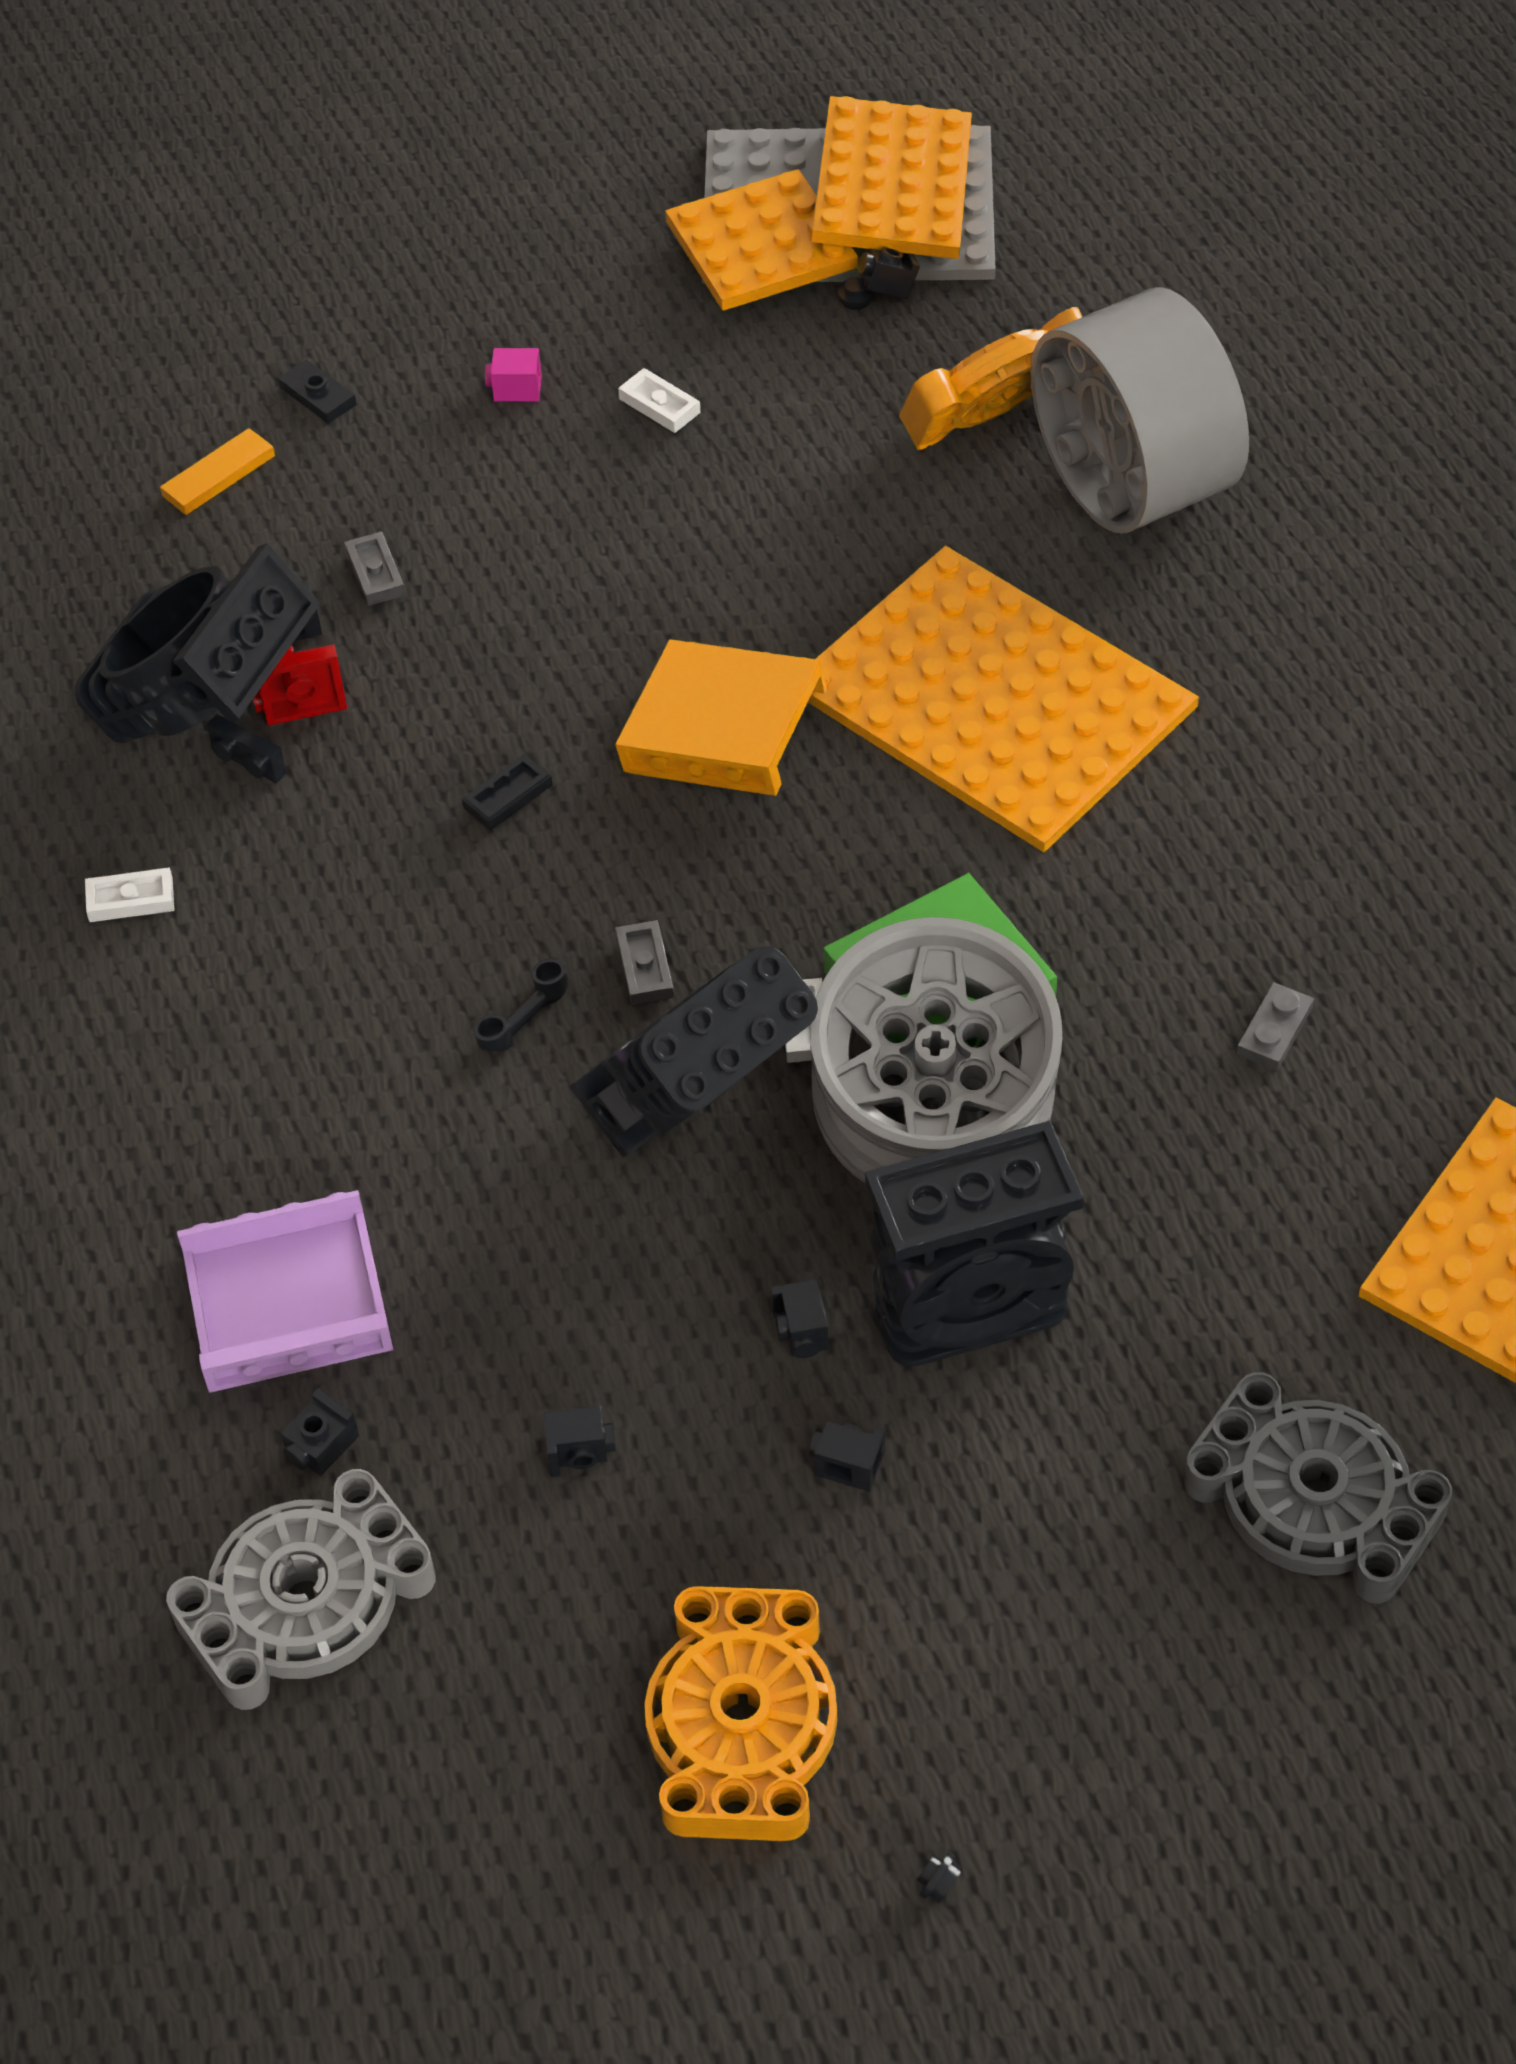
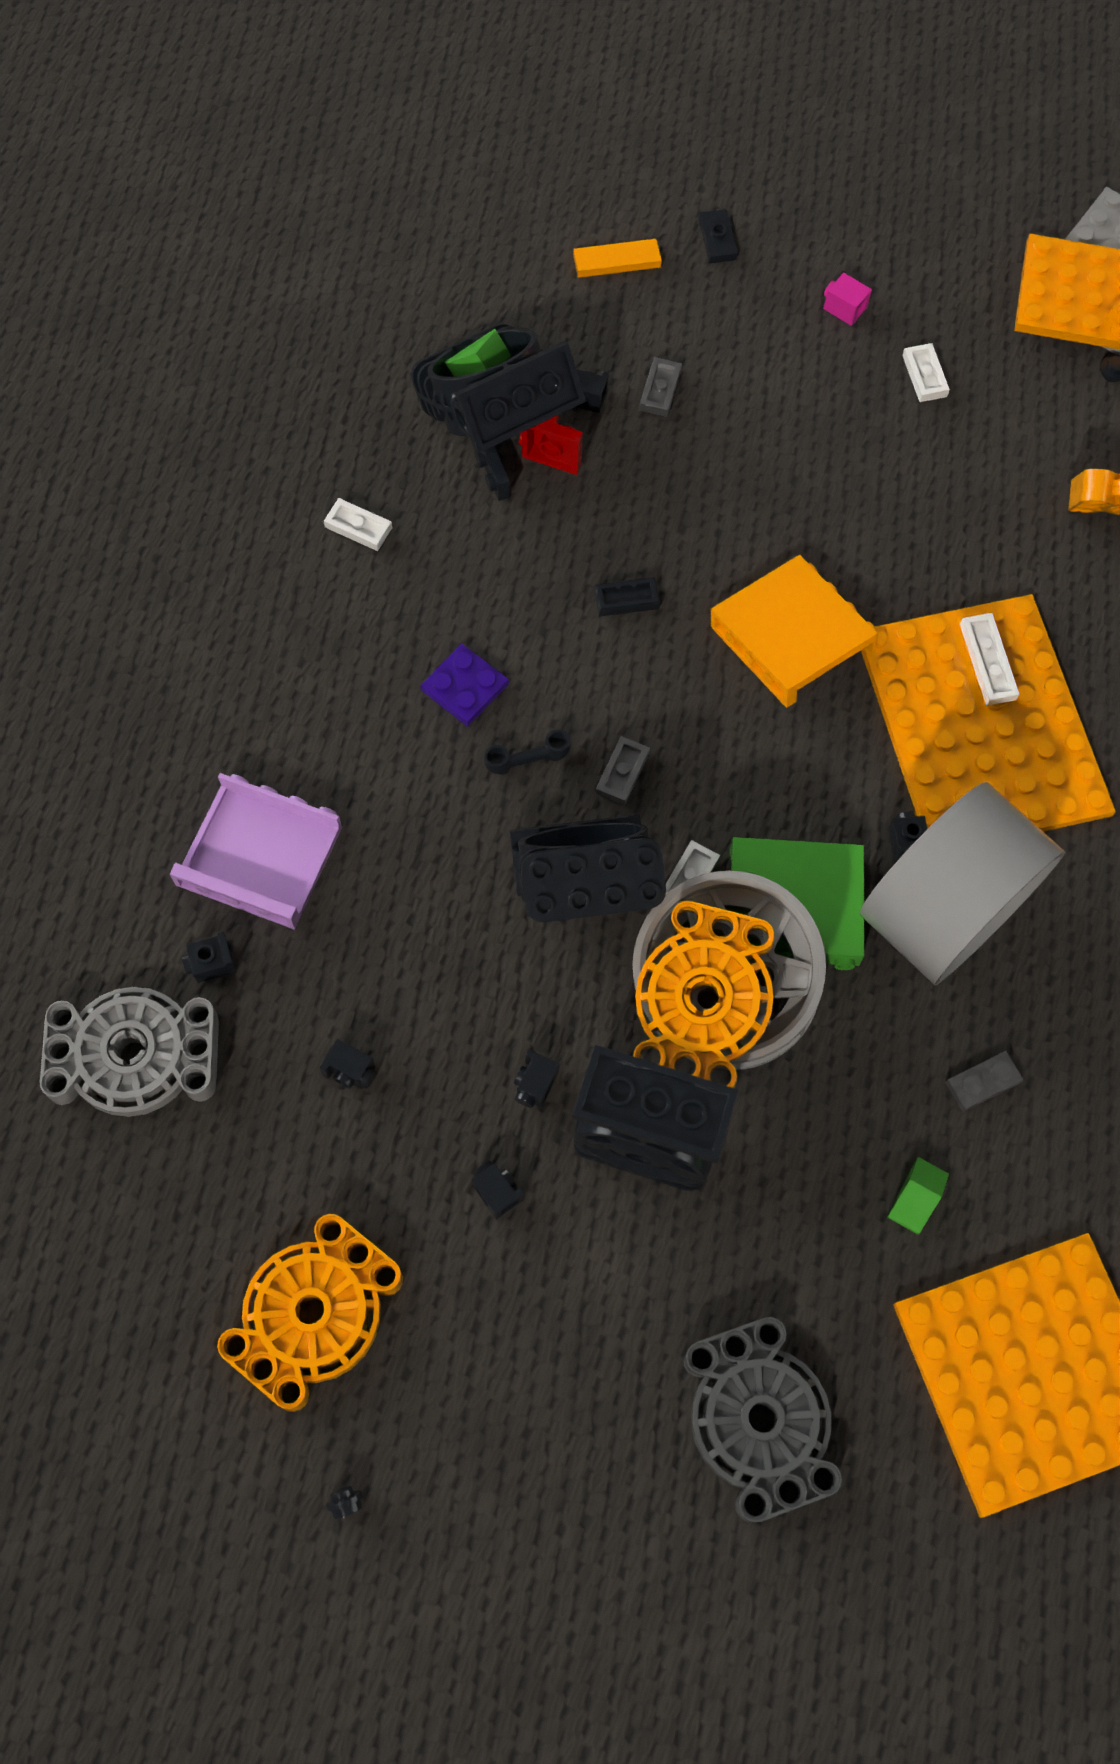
camera: 30 degrees right, 15 degrees up
(151, 631) = (479, 356): none -> bright green slope
(390, 985) = (464, 685): none -> dark purple plate
(930, 1028) = (712, 963): none -> light orange piece
(954, 624) = (989, 659): none -> white plate
(1010, 844) = (899, 829): none -> black brick
(1105, 828) = (960, 882): none -> light grey wheel
(1300, 1175) = (918, 1195): none -> bright green slope

